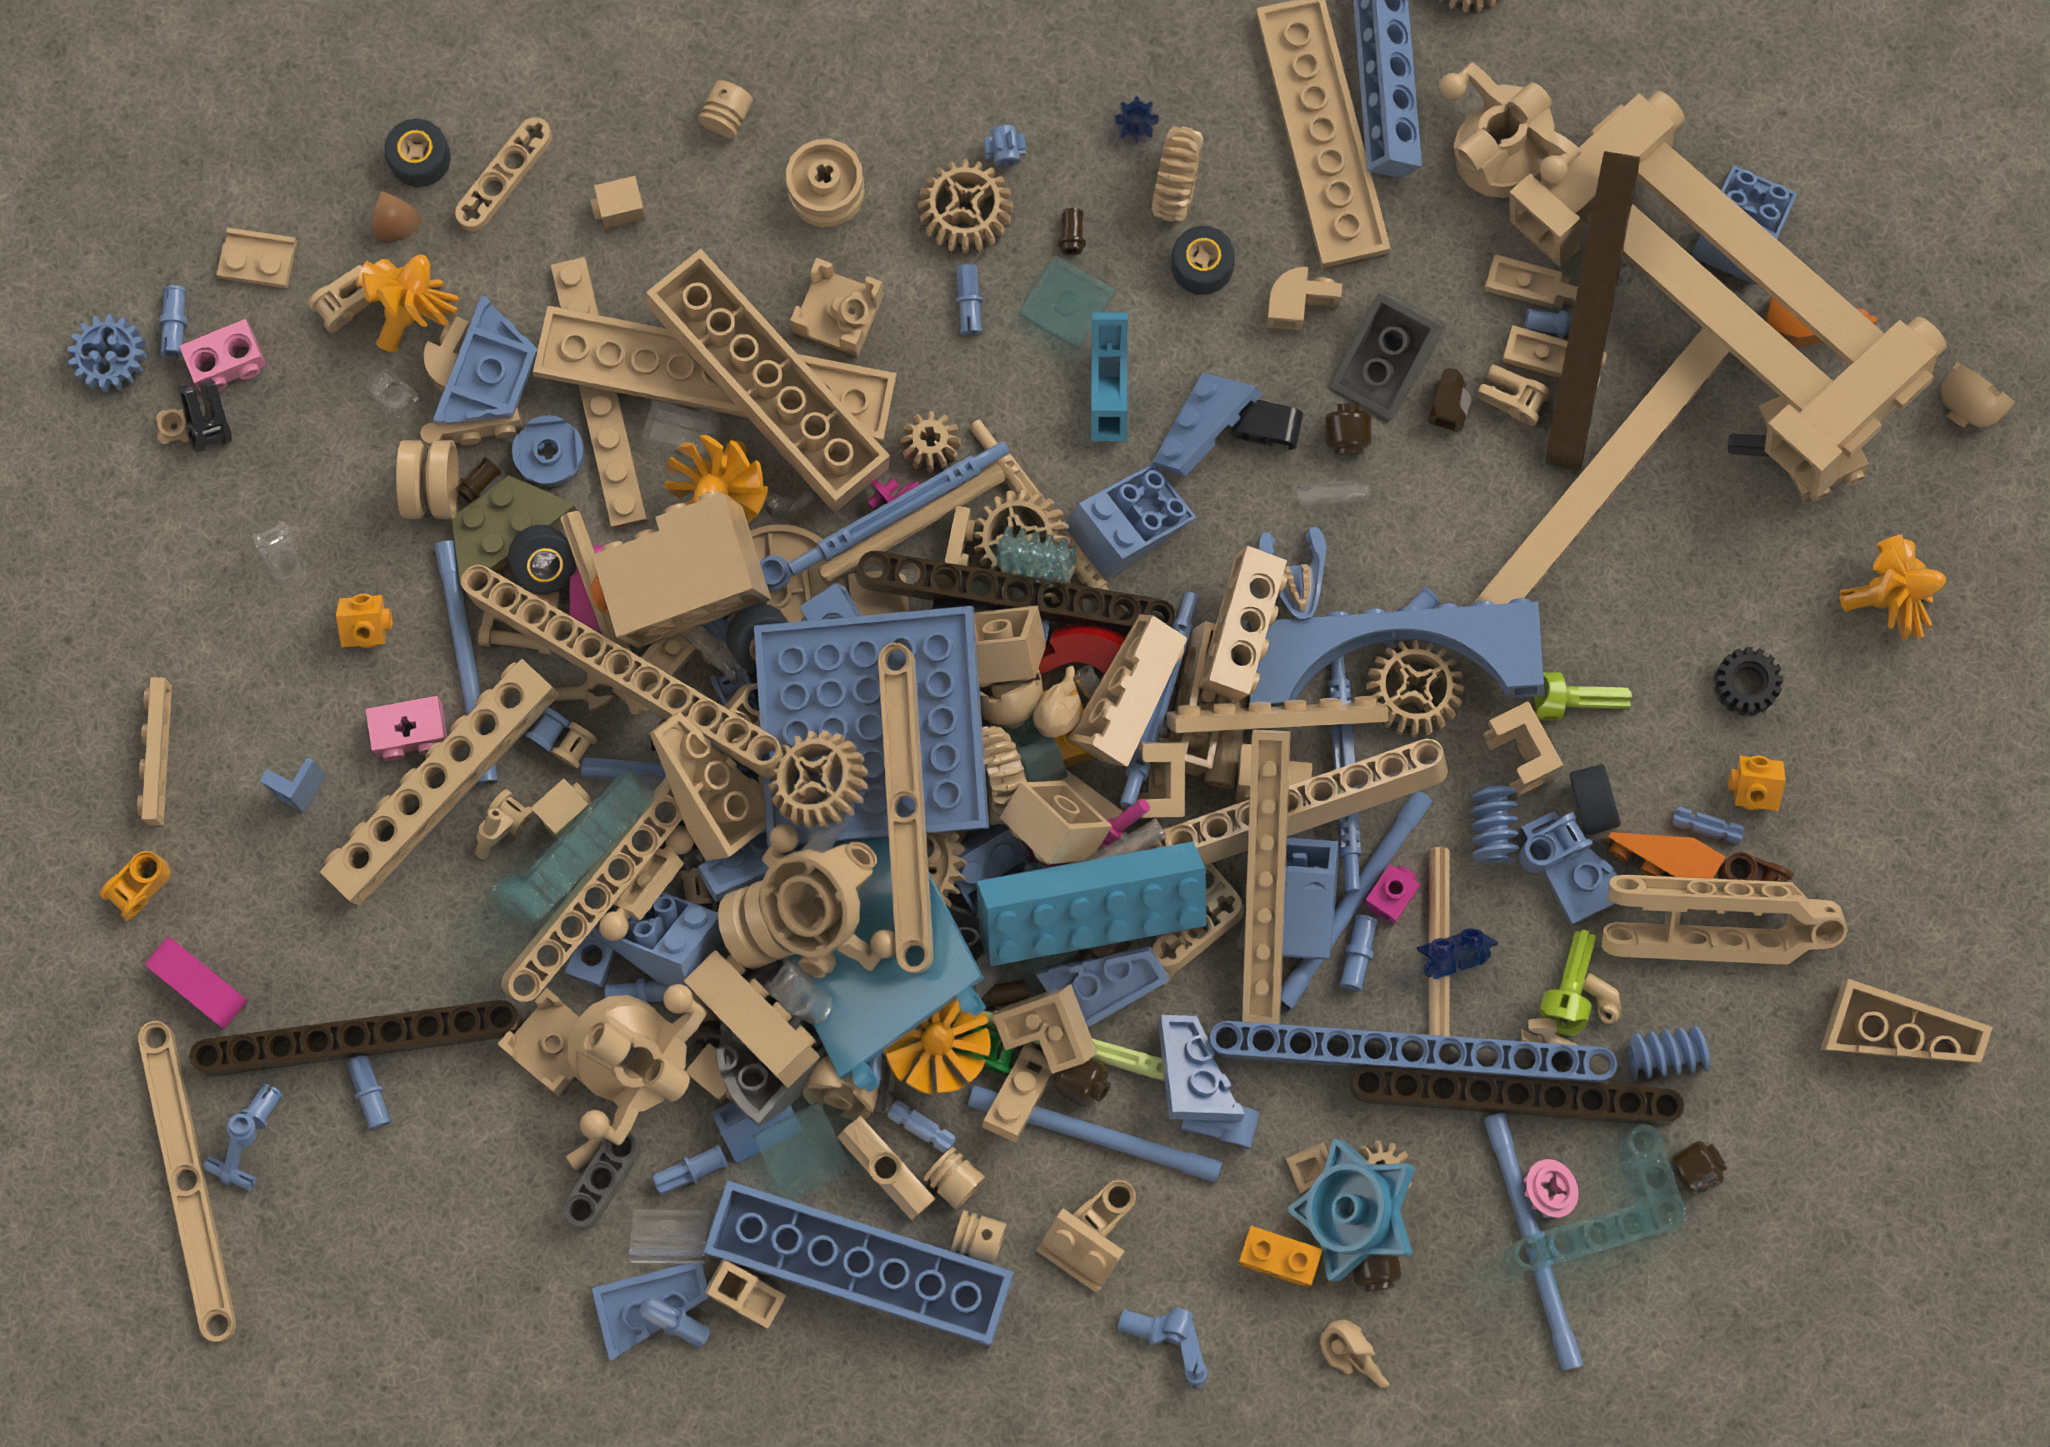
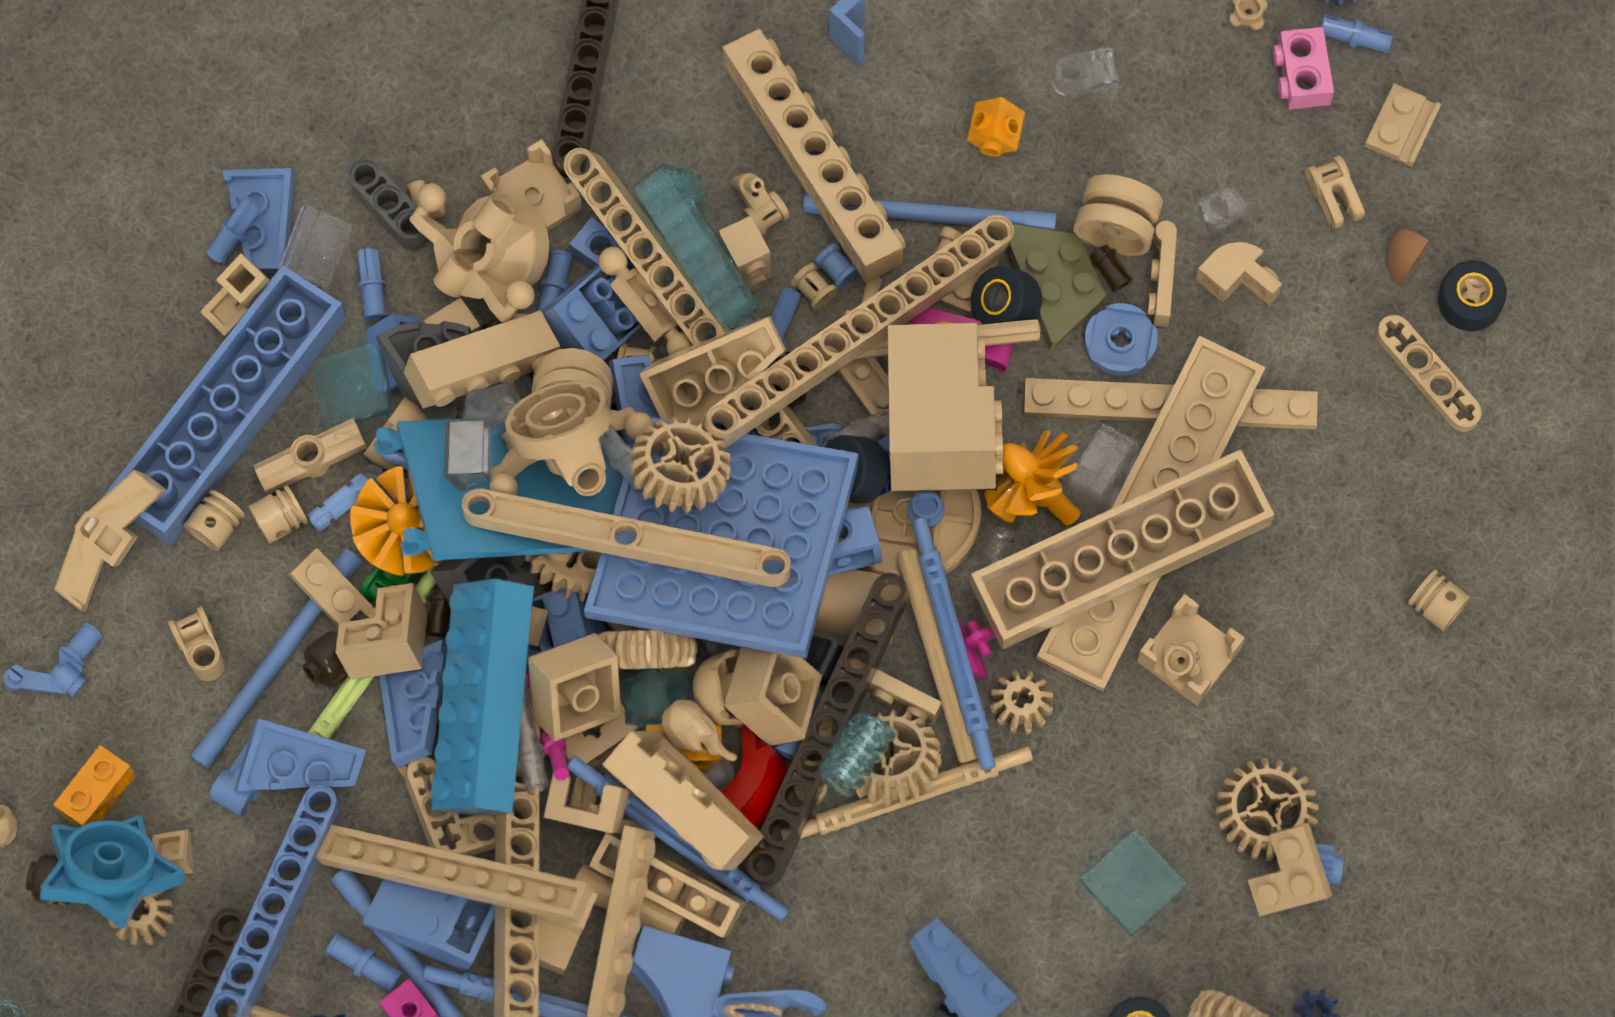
camera: 105 degrees right, 5 degrees down
(212, 426) = (1234, 37): black piece -> none
(368, 1092) = (541, 28): medium blue axle -> none
(389, 722) = (882, 123): bright pink brick -> none
(405, 295) = (1317, 233): light orange piece -> none
(487, 370) = (1214, 295): medium blue wing -> none
(618, 202) = (1365, 471): tan brick -> none
(825, 183) = (1315, 662): tan wheel -> none
(856, 991) = (467, 452): none -> slope
(969, 299) = (1164, 785): medium blue axle -> none
(1022, 157) = (1300, 877): none -> tan plate
(1030, 1332) = (104, 536): none -> tan plate
(1072, 232) = (1210, 910): dark brown pin -> none
(1080, 1250) = (168, 607): tan plate -> none
(1109, 376) = (1031, 896): dark azure arch -> none
(1128, 520) = (880, 875): medium blue slope -> none
(1219, 672) = (778, 960): tan brick -> none

